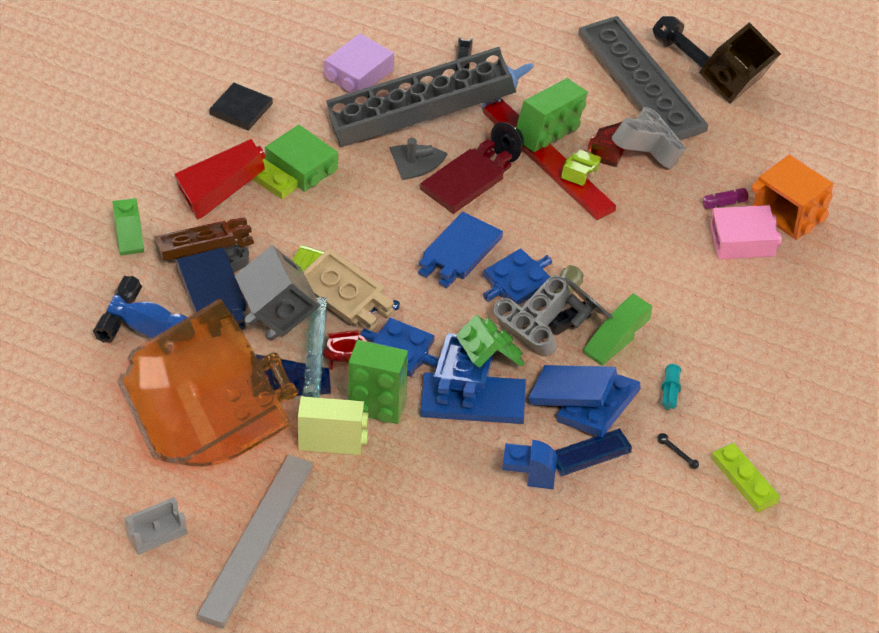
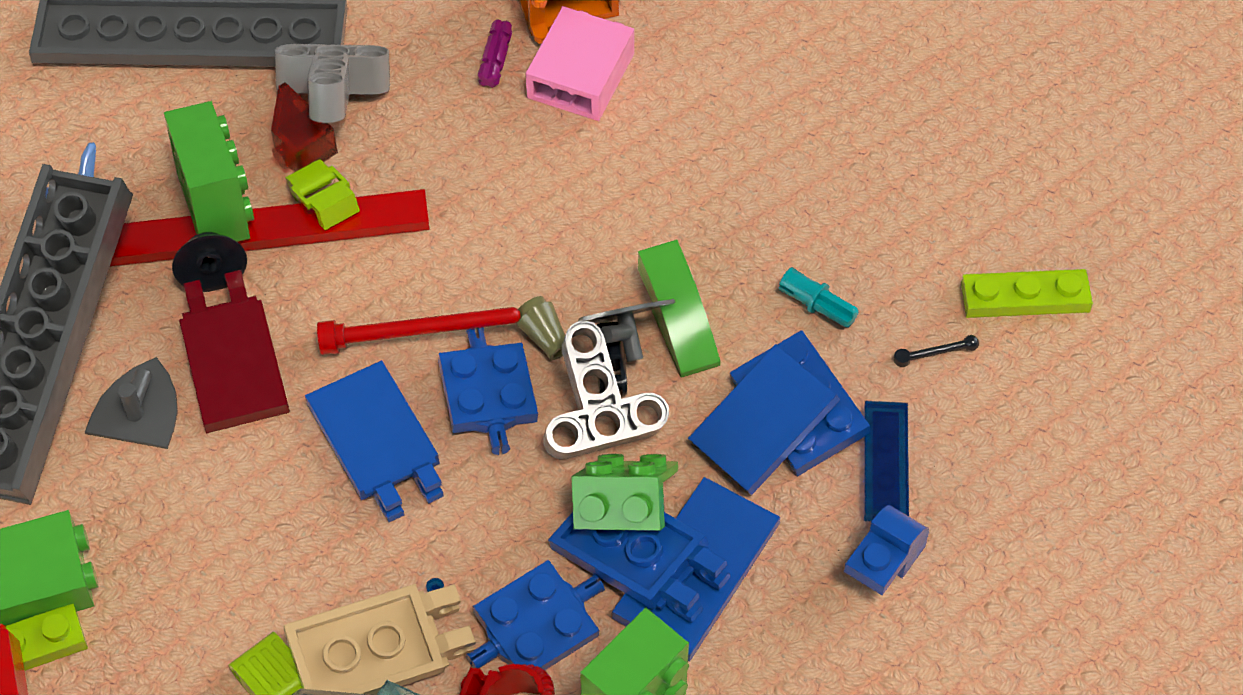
camera: 60 degrees left, 10 degrees up
(503, 208) = (336, 336): none -> red piece

